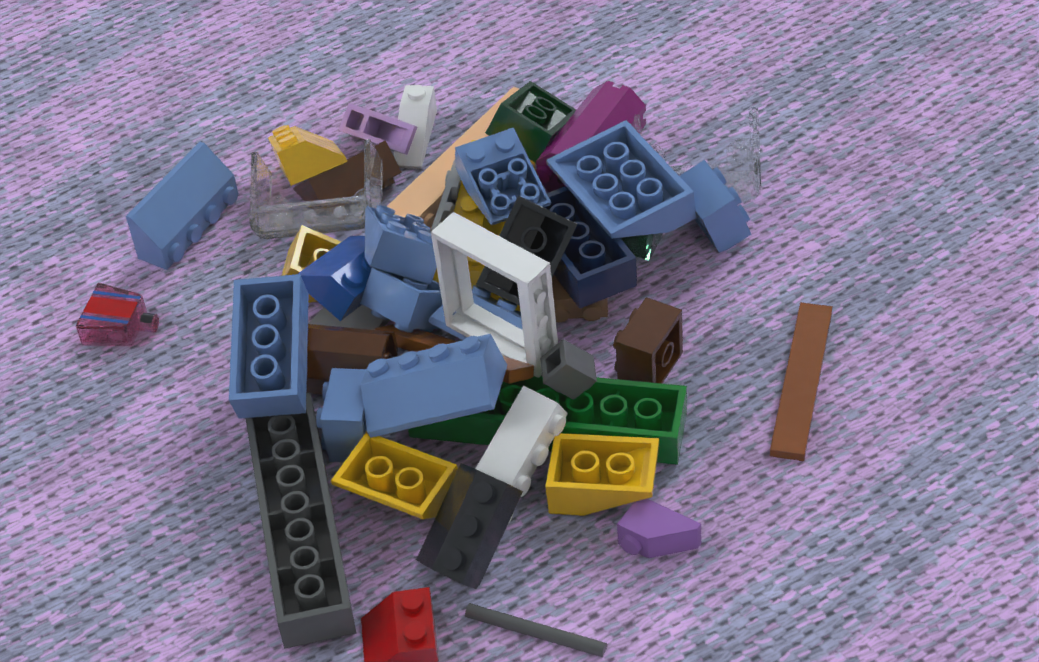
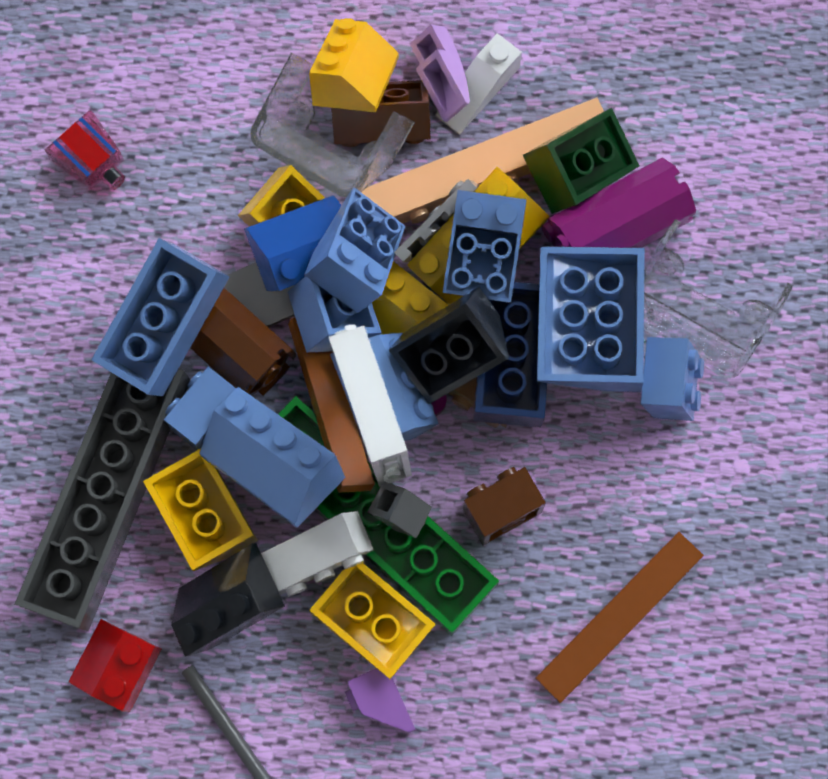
camera: 30 degrees right, 30 degrees up
(181, 207) = (213, 60): medium blue slope -> none

